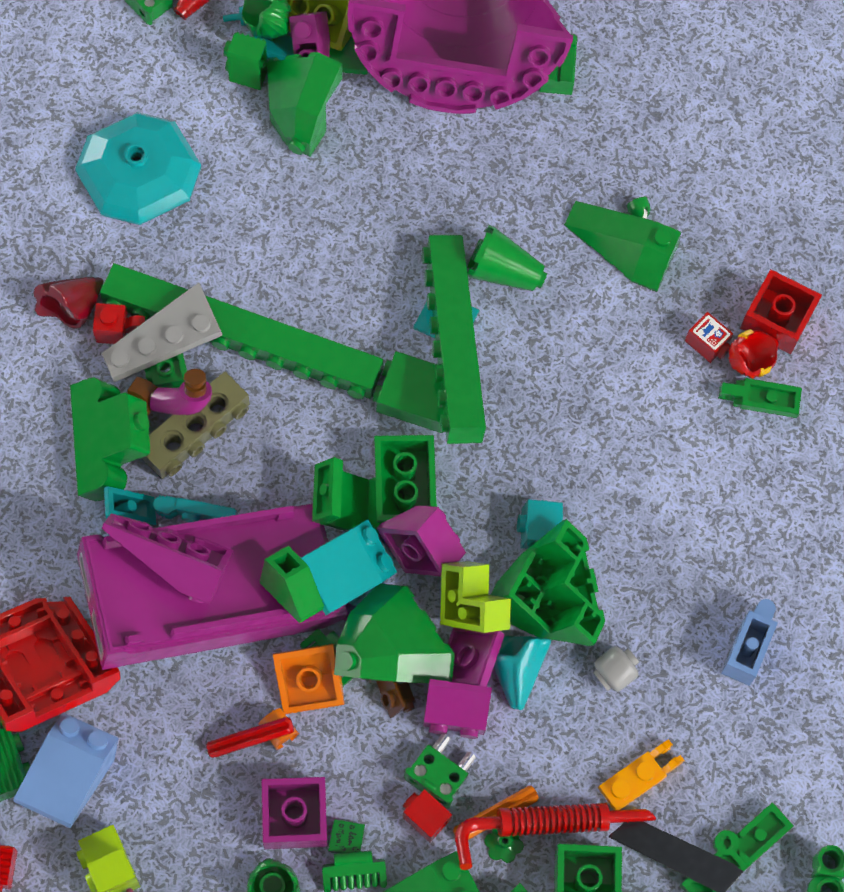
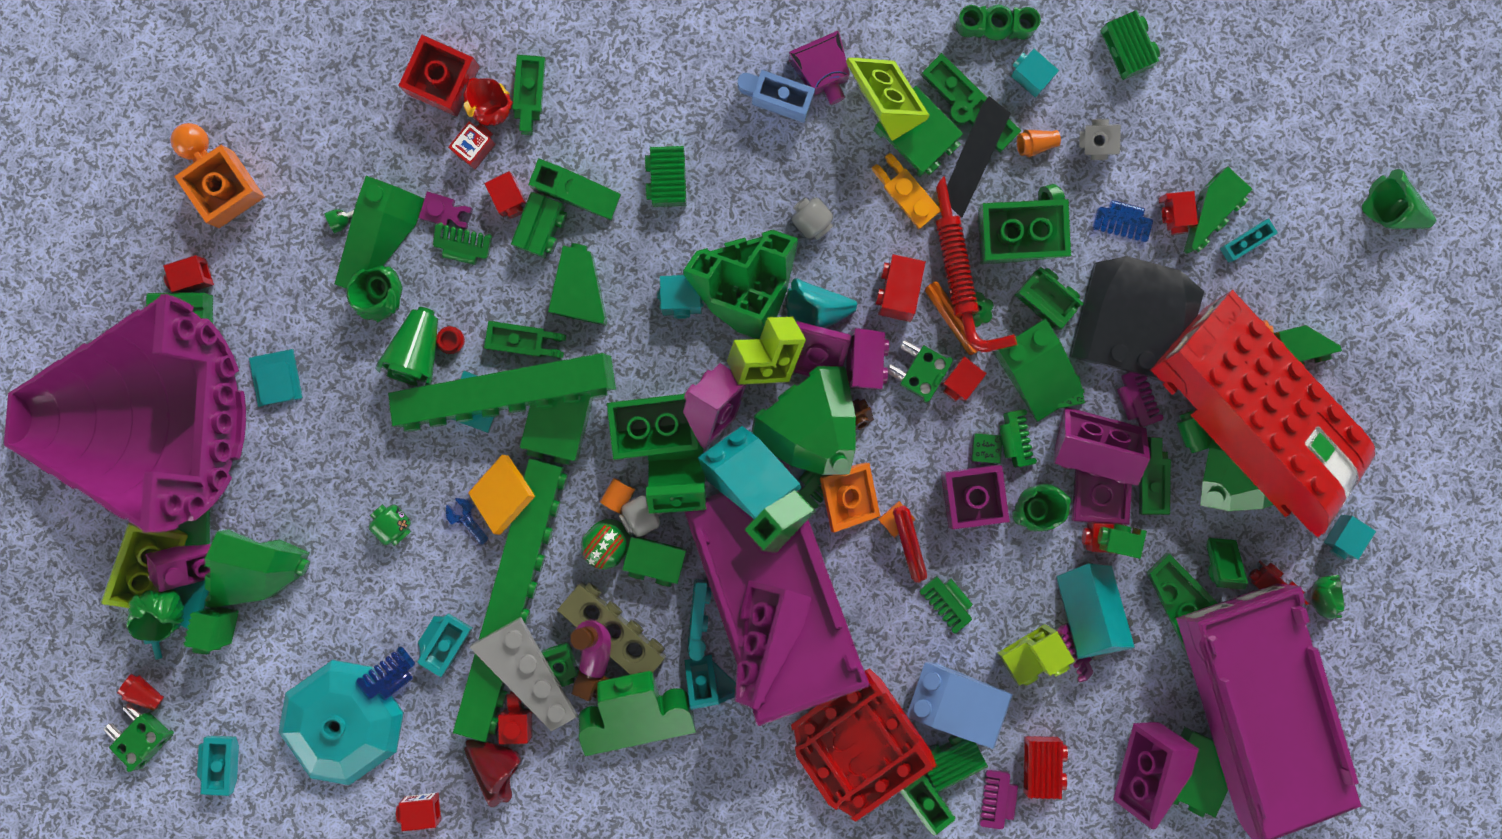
camera: 90 degrees left, 20 degrees up
(38, 229) = (419, 812): none -> red brick
(113, 59) = (218, 765): none -> teal slope
(172, 214) = (389, 682): none -> clear blue piece
(183, 785) = (953, 597): none -> green piece
(203, 266) = (442, 643): none -> teal slope
(263, 474) = (654, 560): none -> green hinge
(285, 425) = (605, 544): none -> green helmet
(306, 457) = (637, 519): none -> light grey head
(327, 300) = (466, 519): none -> clear blue bar
(329, 227) = (389, 524): none -> green head
(335, 443) = (617, 495): none -> orange beam
(349, 330) = (501, 494): none -> light orange tile
(486, 142) = (275, 377): none -> teal piece
(506, 366) = (521, 339): none -> green hinge
(511, 301) = (450, 340): none -> red plate
(533, 754) = (901, 287): none -> red brick
(557, 425) = (577, 287): none -> green slope
(563, 232) = (375, 293): none -> green hair
(592, 73) = (187, 275): none -> red brick
(602, 320) = (459, 250): none -> green piece
(623, 393) = (538, 225): none -> green brick
(644, 305) = (442, 210): none -> magenta plate
(656, 365) = (506, 195): none -> red brick
(658, 429) = (573, 189): none -> green slope
(668, 523) = (667, 176): none -> green brick
(682, 106) = (203, 178): none -> orange brick
(705, 792) = (928, 140): none -> green panel
(746, 752) = (888, 94): none -> lime slope
(781, 695) = (822, 66): none -> magenta torso

